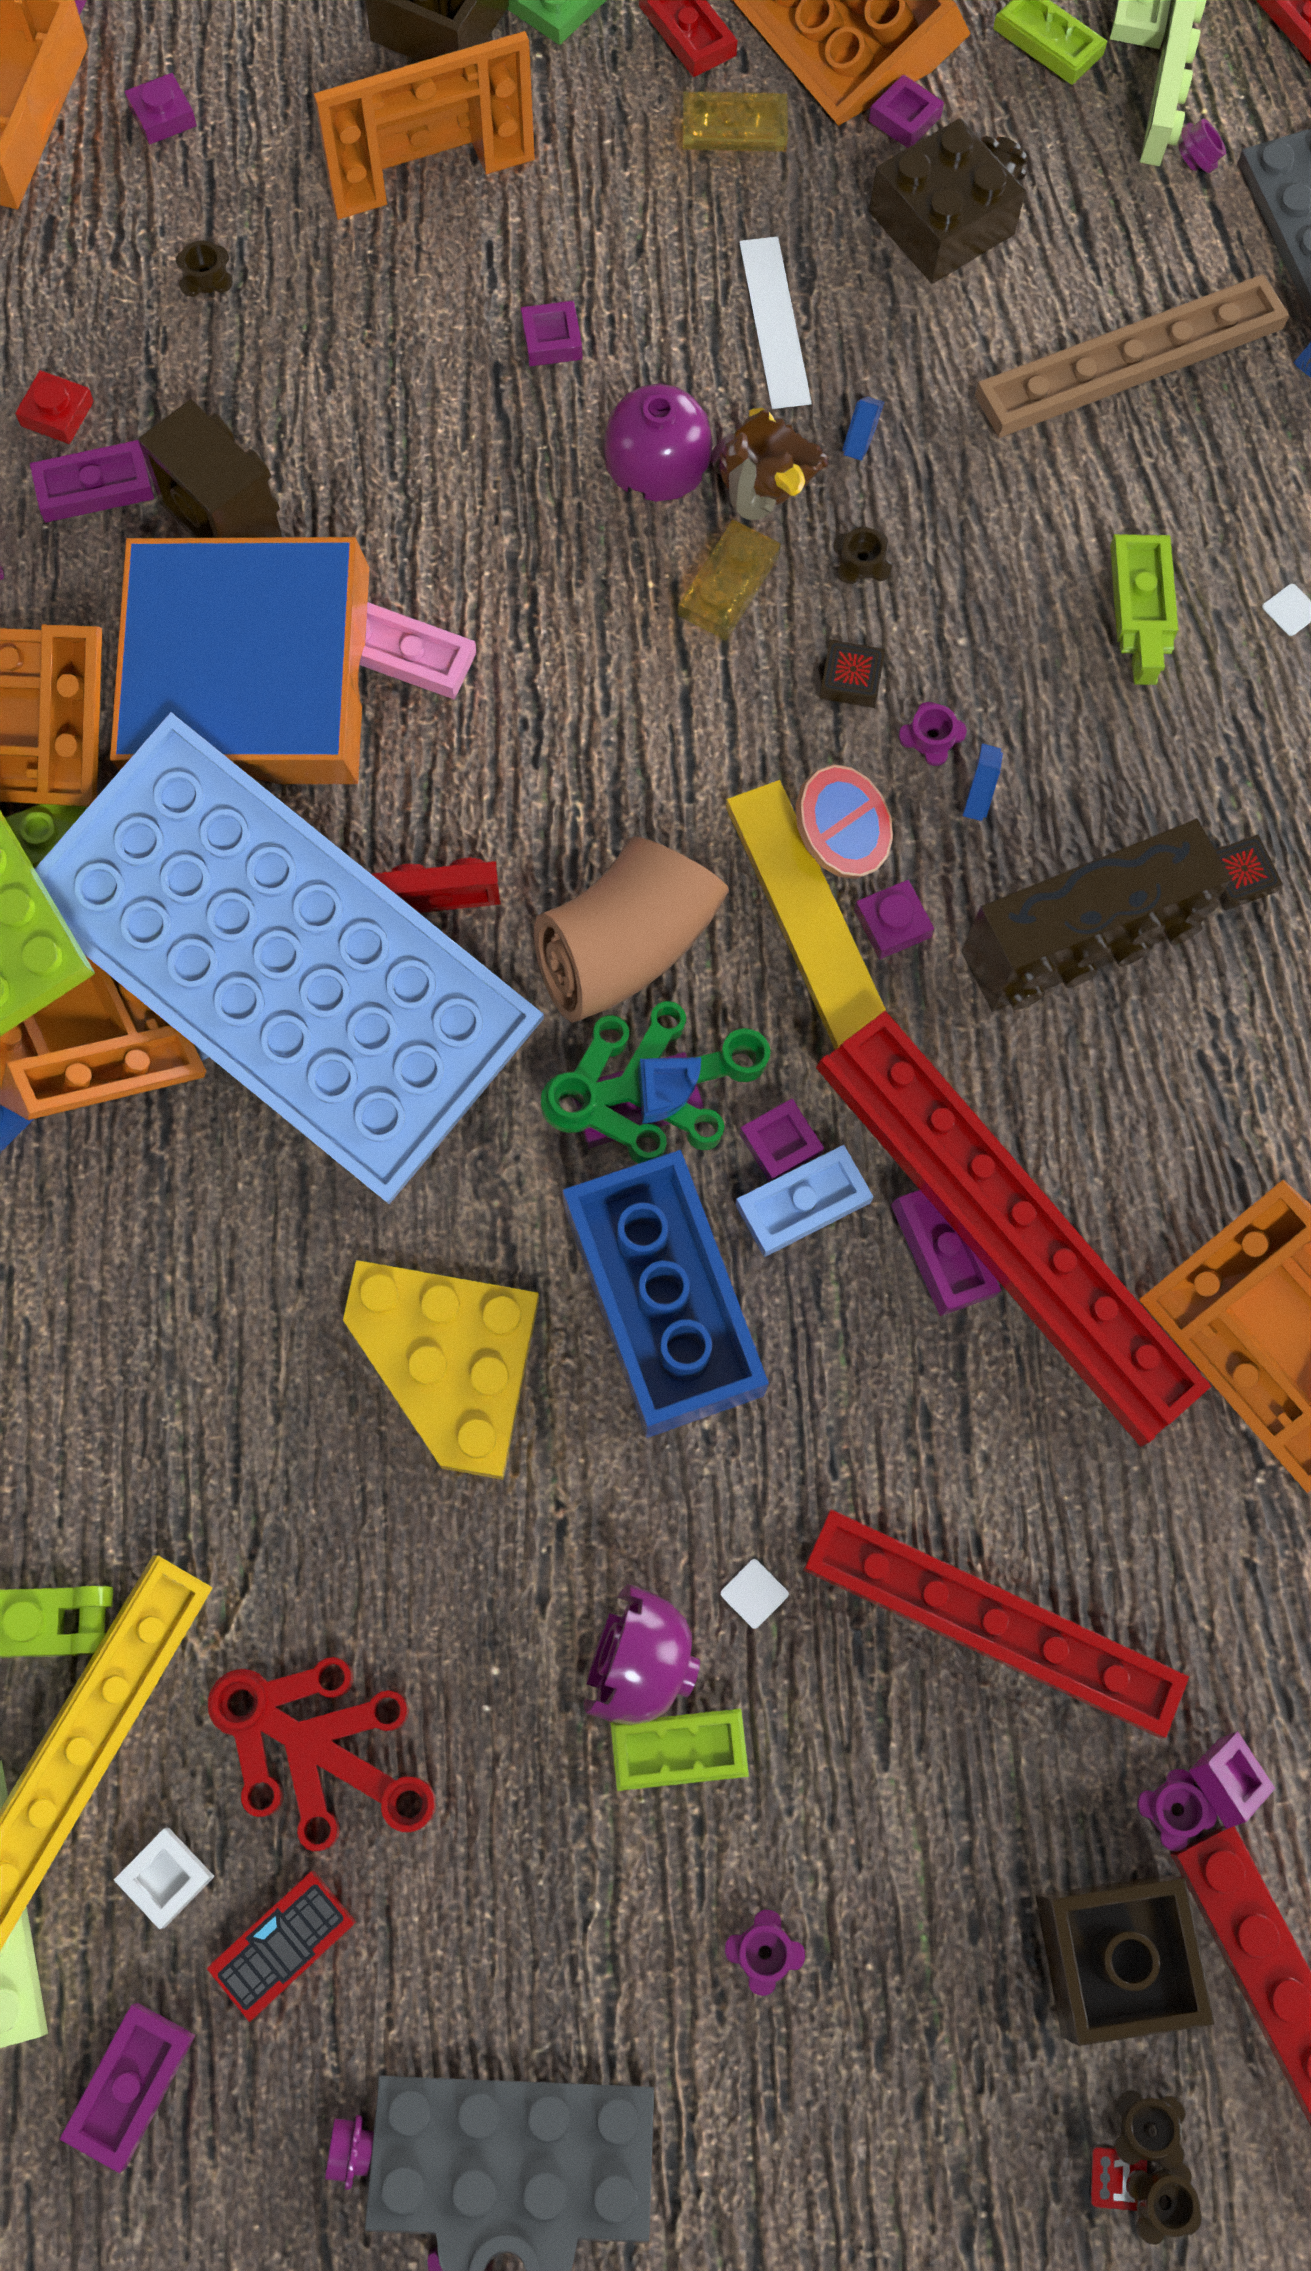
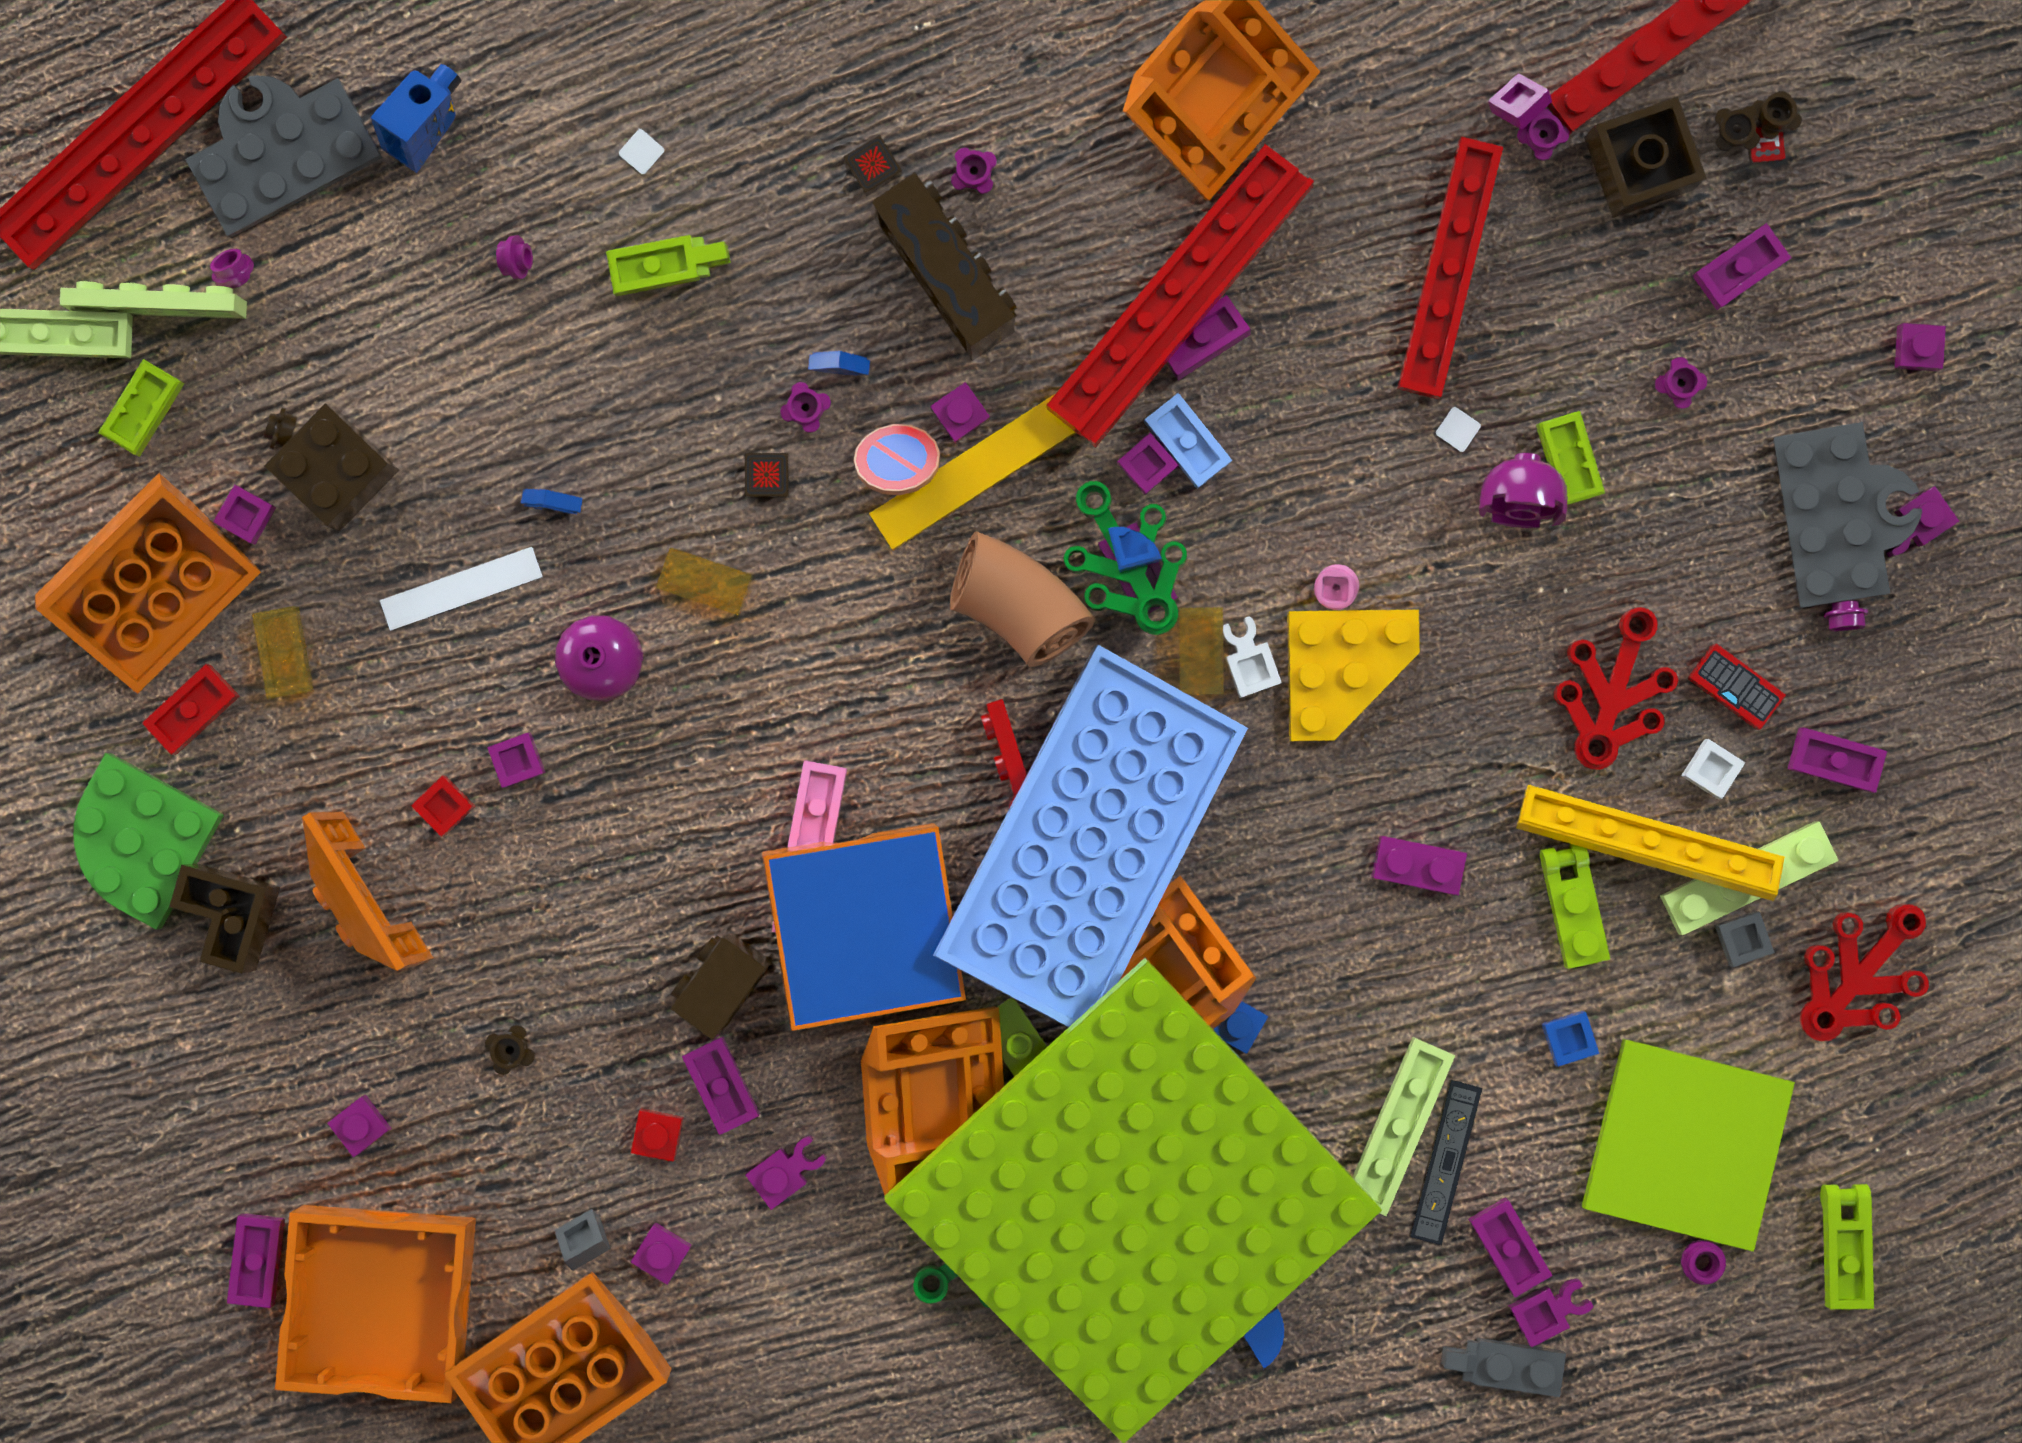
camera: 100 degrees left, 15 degrees up
(138, 1408) = (1419, 865): none -> magenta plate
(472, 1227) = (1251, 665): none -> white plate
(508, 1162) = (1201, 650): none -> clear yellow plate
(514, 249) = (443, 806): none -> red plate
(559, 1366) = (1336, 587): none -> bright pink tile
(664, 1293) = (1279, 522): blue brick -> none
(765, 464) = (608, 567): reddish brown hair -> none
(864, 542) = (654, 477): dark brown plate -> none
(931, 2091) = (1741, 266): none -> magenta plate
(1131, 355) = (444, 300): medium nougat plate -> none
(1175, 436) = (514, 257): none -> magenta plate
(1227, 980) = (972, 158): none -> magenta plate

